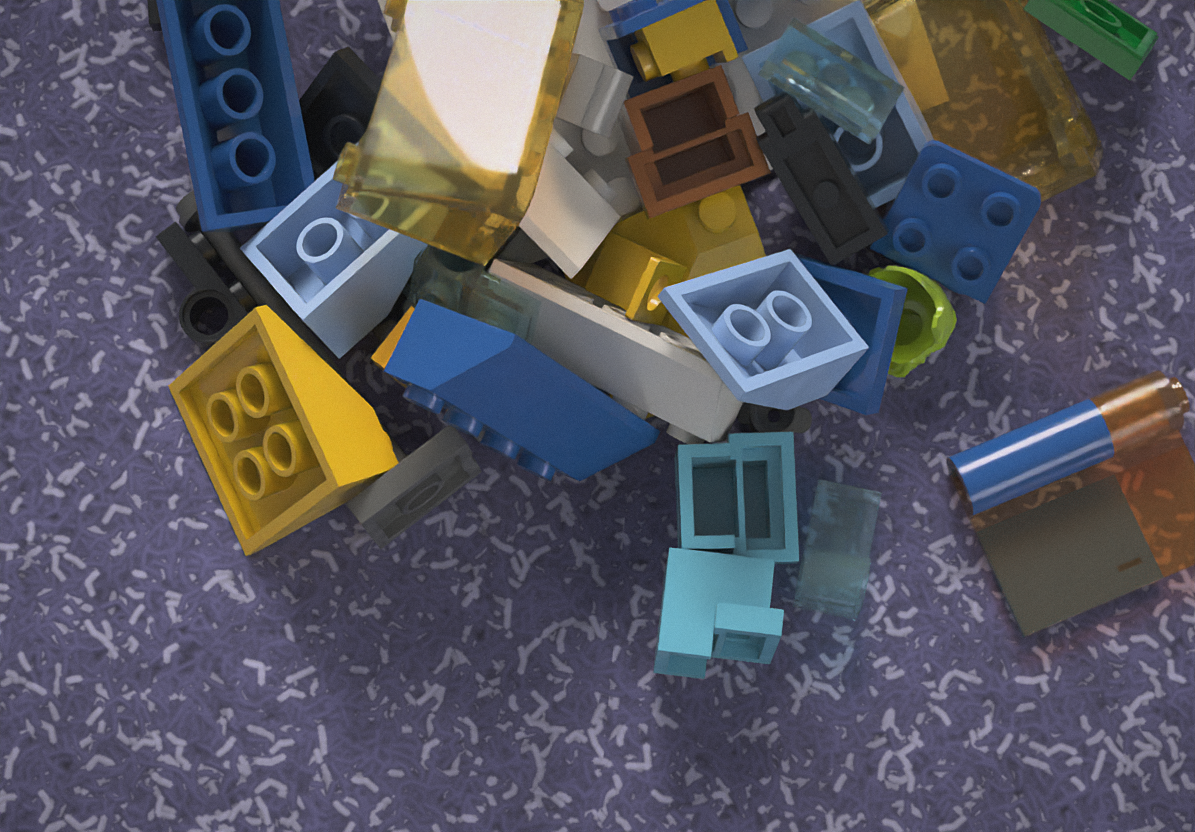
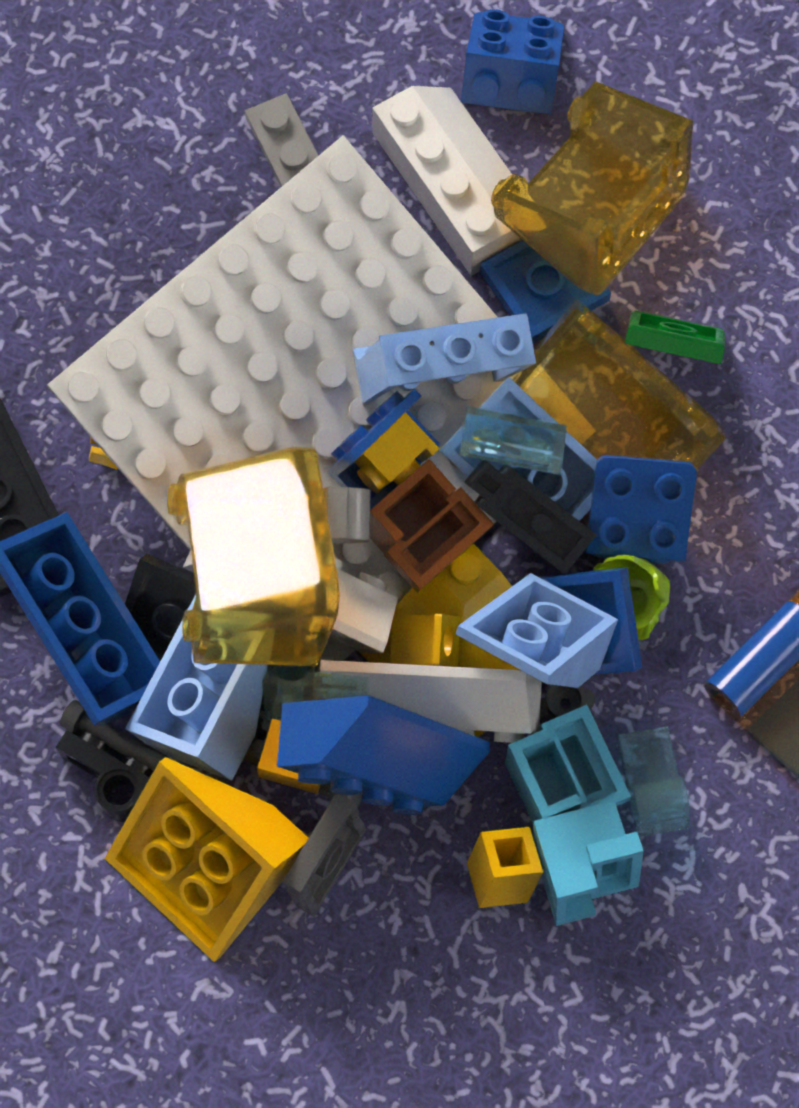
camera: 20 degrees left, 10 degrees down
(618, 583) = (504, 867): none -> yellow brick

